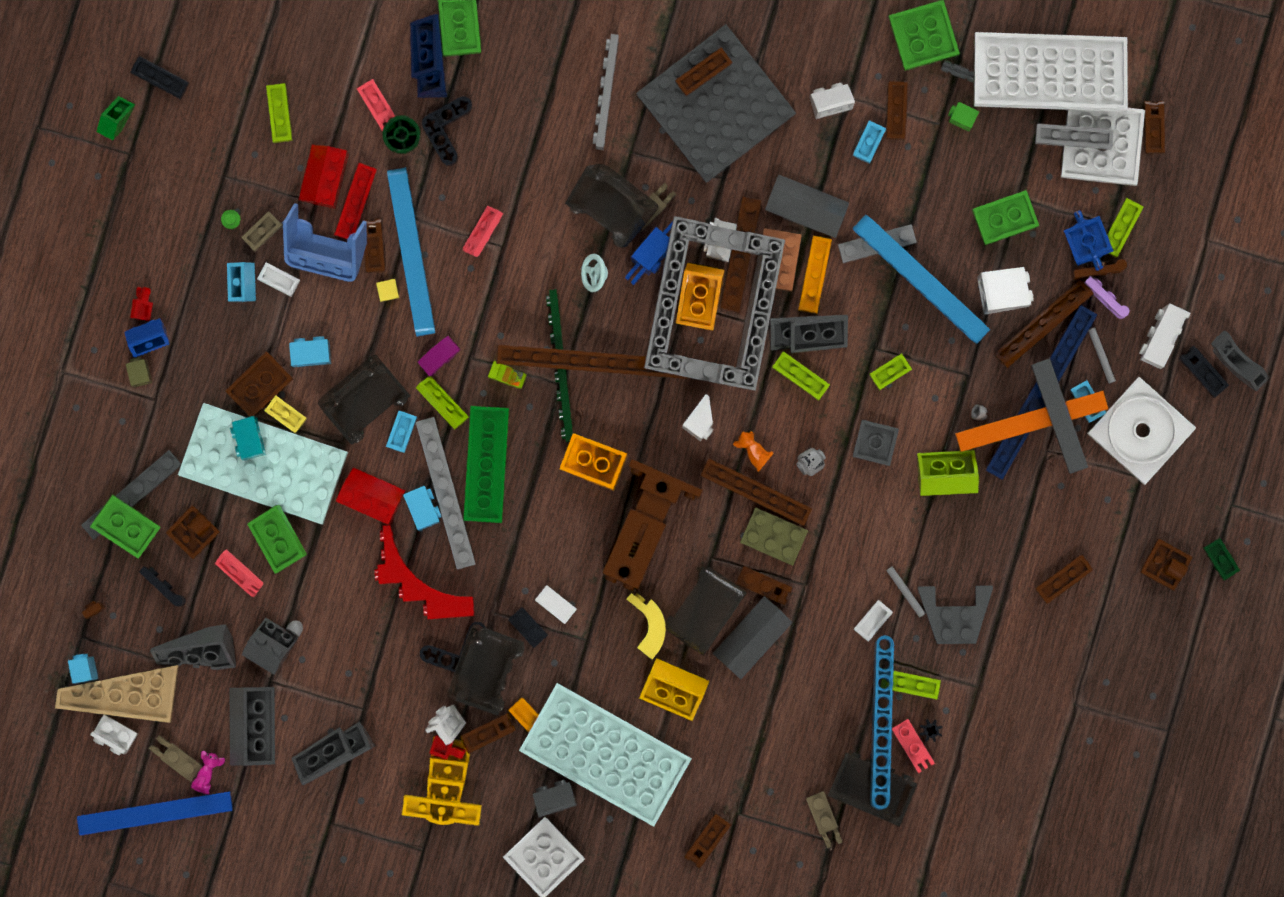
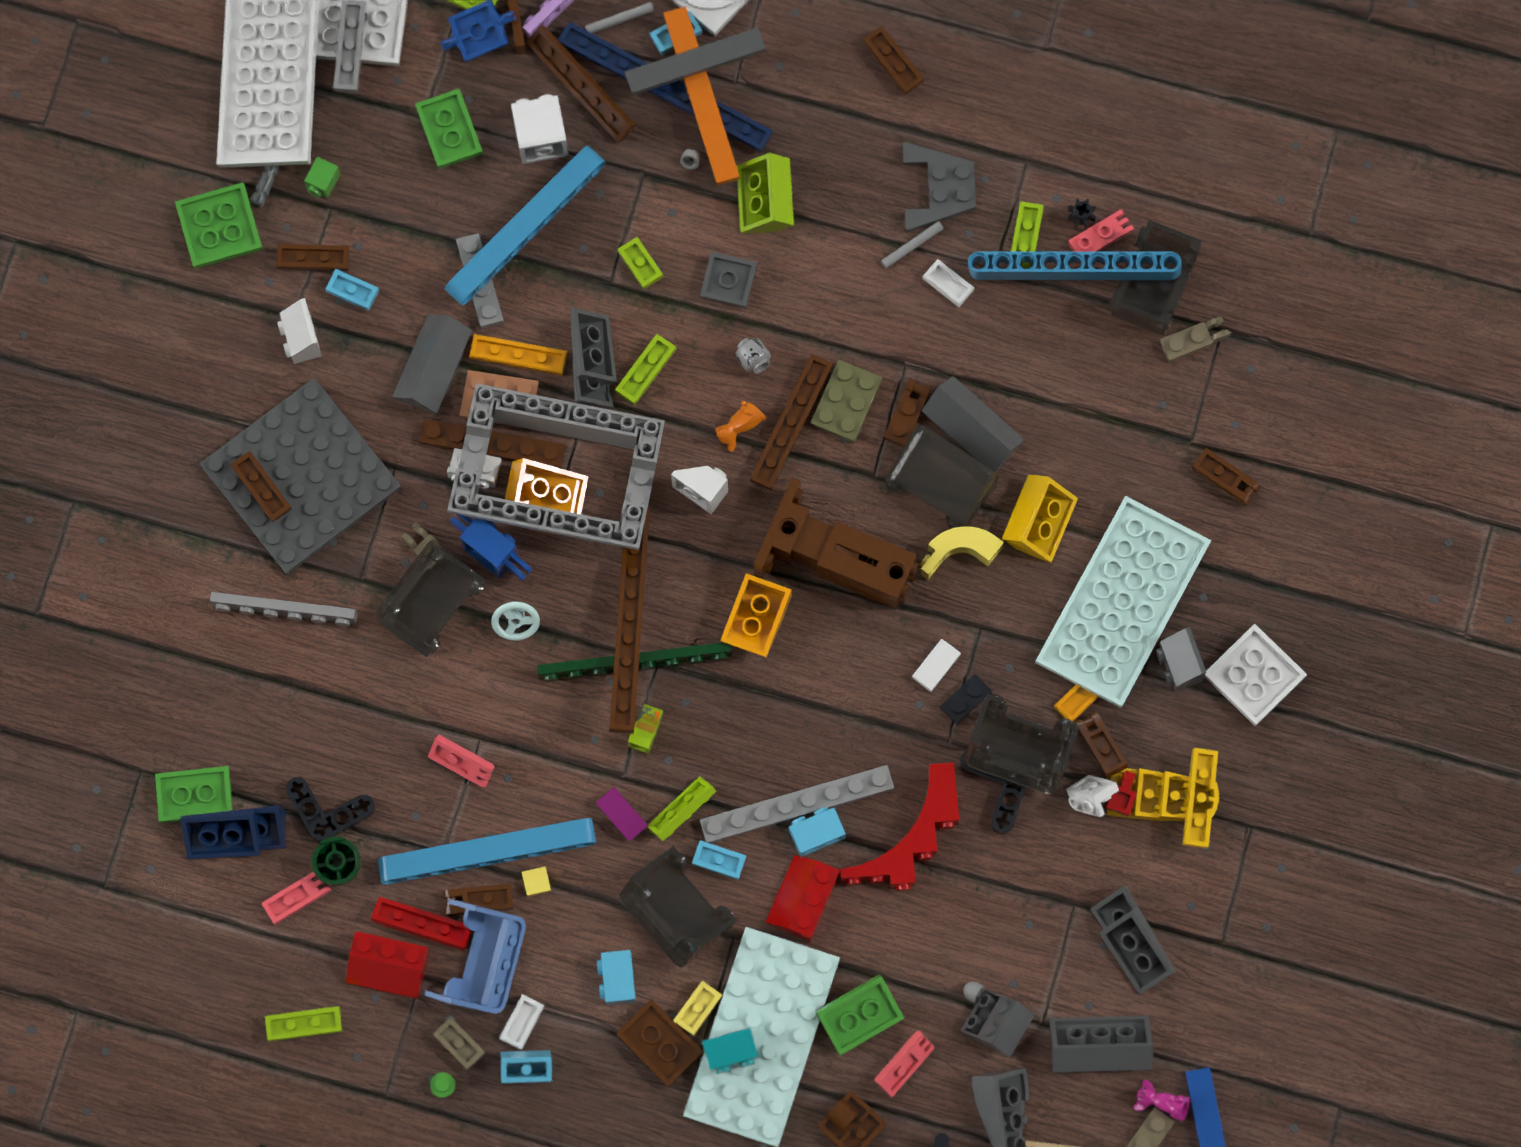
camera: 90 degrees left, 10 degrees down
(486, 464) = (760, 752): green plate -> none

